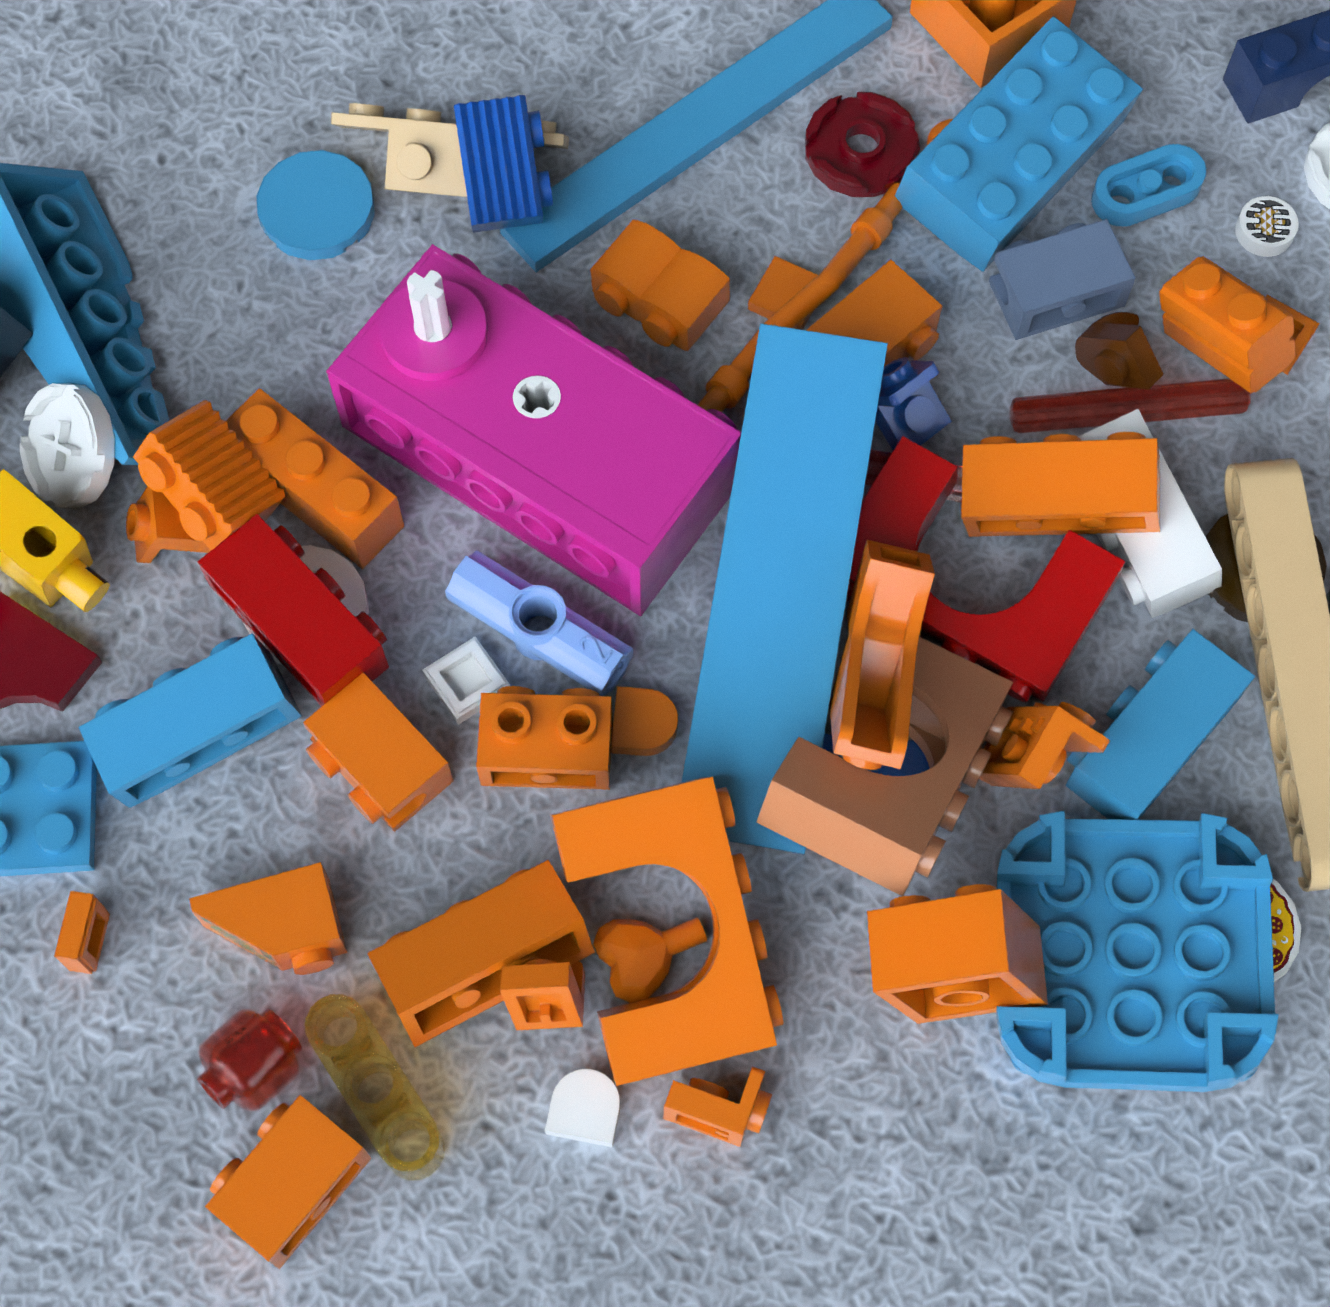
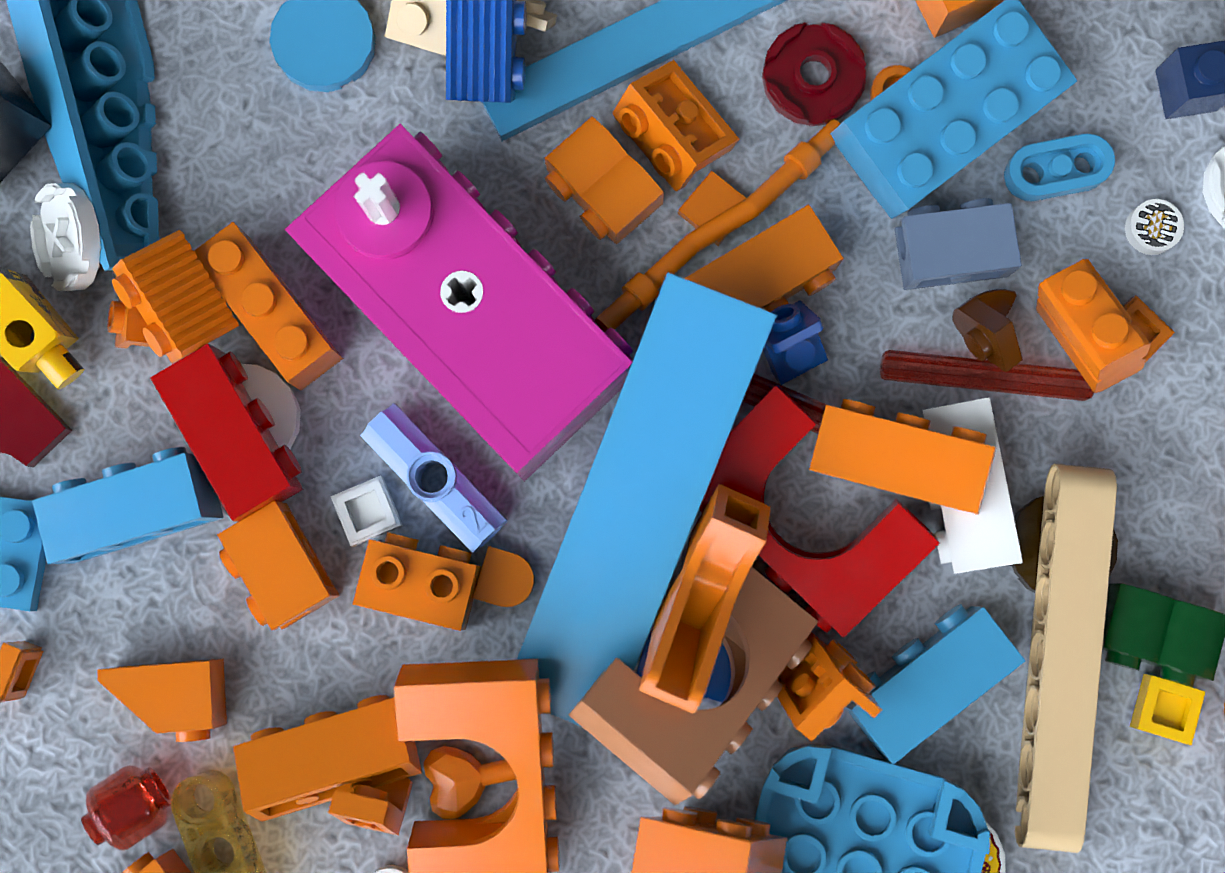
camera: 15 degrees right, 15 degrees up
(721, 217) = (673, 124): none -> orange bracket

